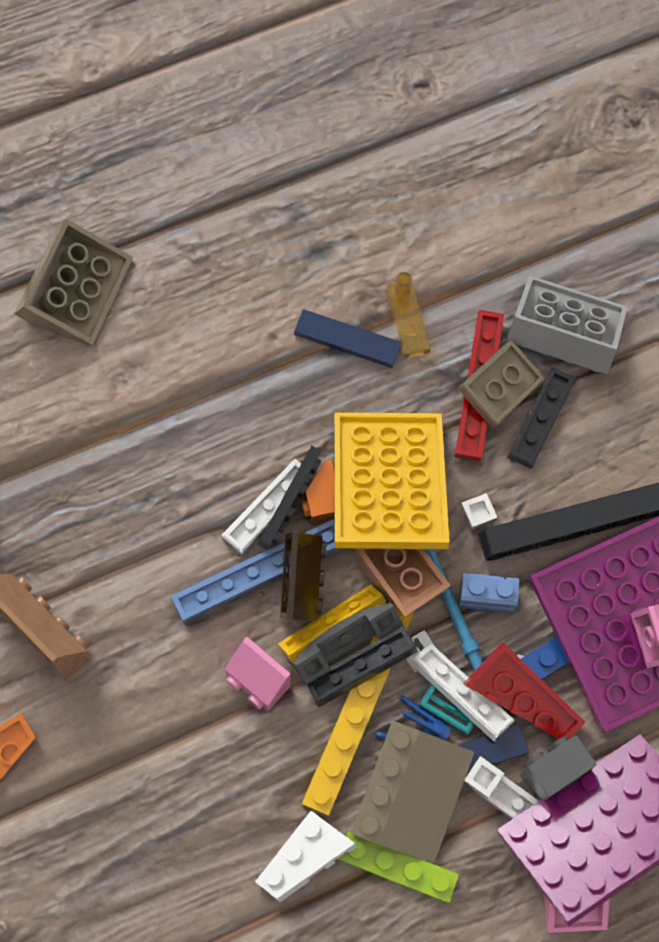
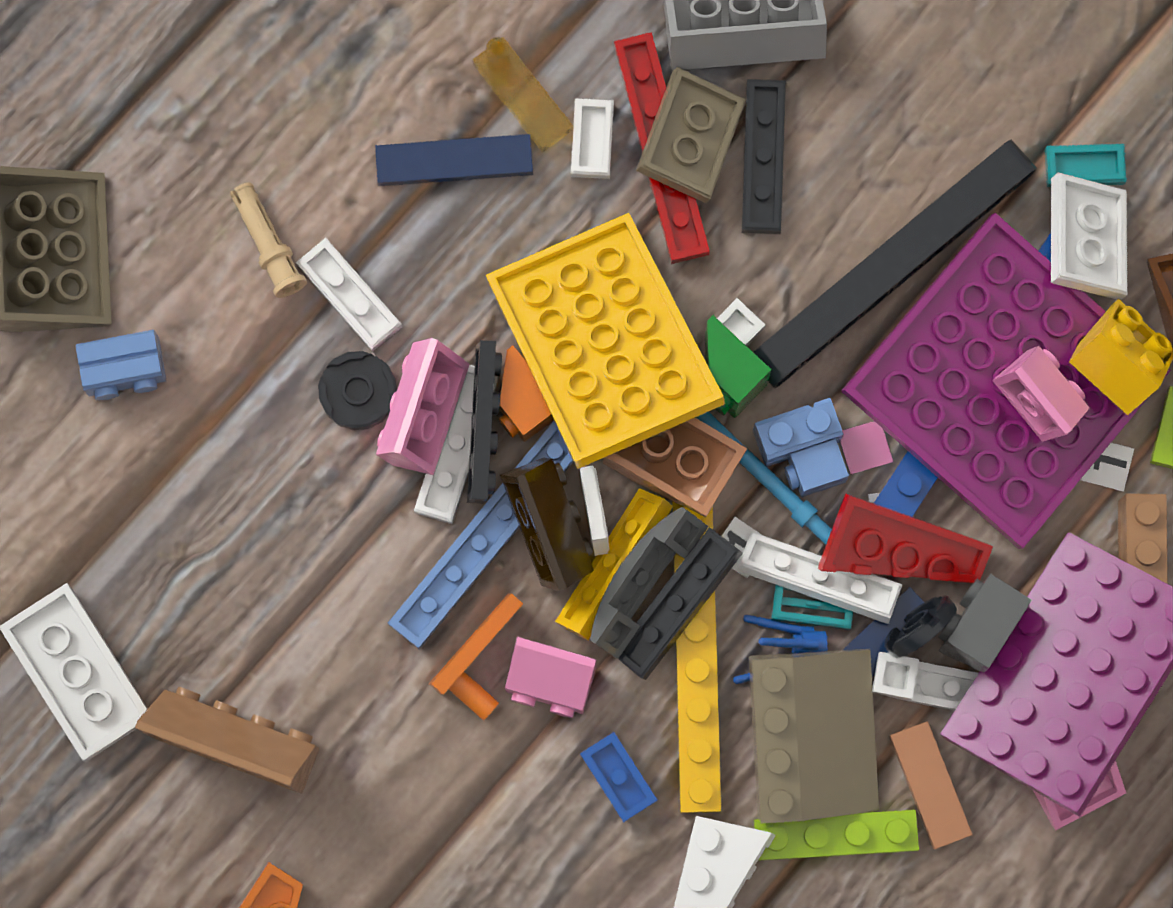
camera: 20 degrees left, 10 degrees up
(85, 369) = (121, 364): none -> medium blue brick
(196, 647) = (452, 675): none -> orange piece
(210, 345) = (274, 255): none -> tan pin
(222, 448) = (357, 390): none -> black tile
(245, 389) = (349, 294): none -> white tile
(257, 473) = (422, 407): none -> bright pink slope
(271, 762) = (618, 777): none -> blue plate
(335, 584) = (594, 510): none -> white tile
(438, 362) = (592, 138): none -> white tile
(466, 535) = (734, 367): none -> green slope
(476, 863) = (930, 785): none -> nougat tile
(490, 621) = (816, 468): none -> medium blue brick
(514, 750) = (920, 626): none -> black tile
(528, 623) = (865, 447): none -> bright pink sticker

